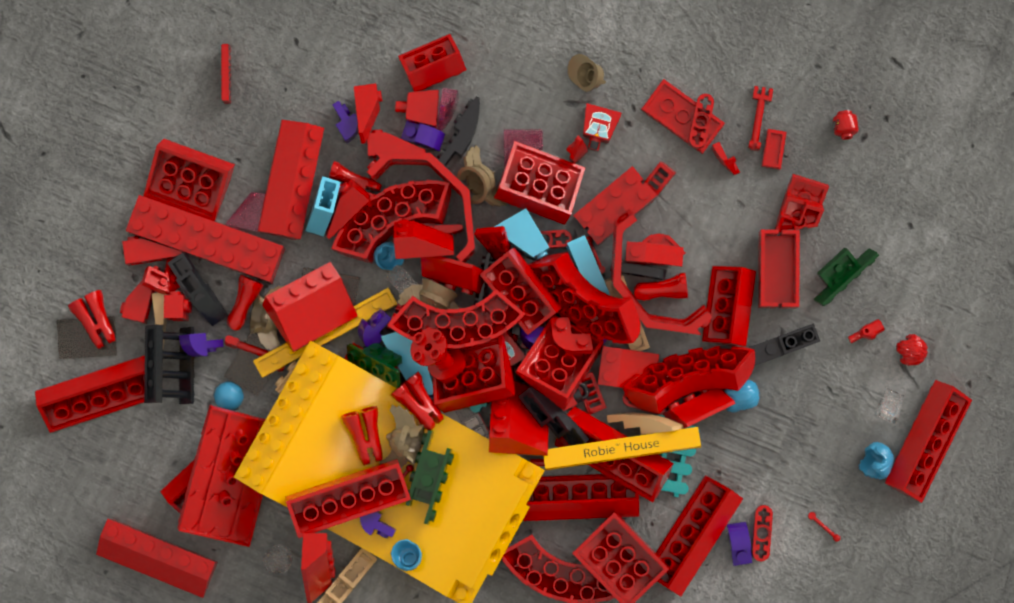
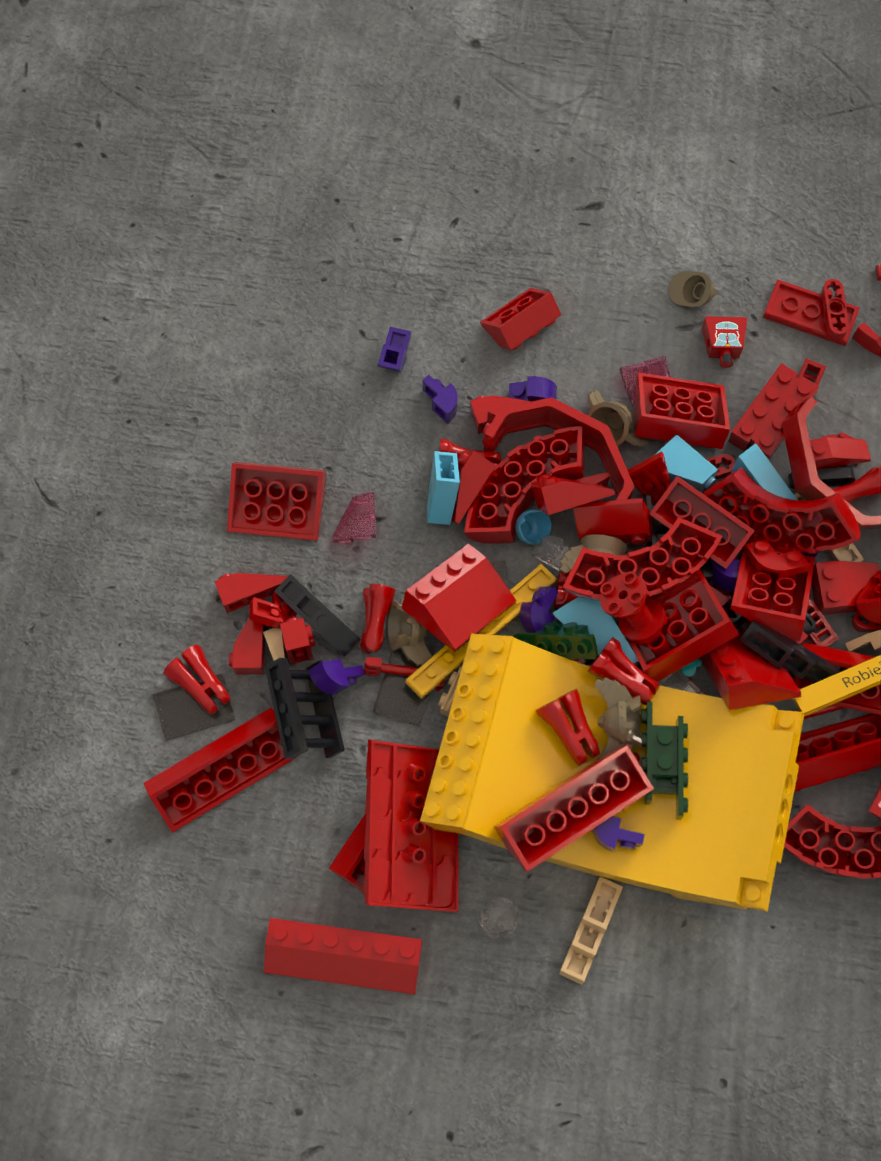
camera: 15 degrees left, 15 degrees down
(205, 239) = (313, 557): red brick -> none
(226, 73) = (292, 379): red tile -> none
(228, 395) = (384, 729): dark azure hair -> none
(291, 179) = (396, 470): red slope -> none
(317, 69) = (394, 350): none -> dark purple brick
(317, 564) = (556, 903): red slope -> none
(367, 108) = (461, 373): red slope -> none
(406, 555) = (667, 863): dark azure hair -> none
(420, 107) = (520, 362): red torso -> none
(447, 107) = (552, 348): clear pink slope -> none
(466, 127) = (577, 375): black slope -> none
(577, 149) = (711, 364): red slope -> none

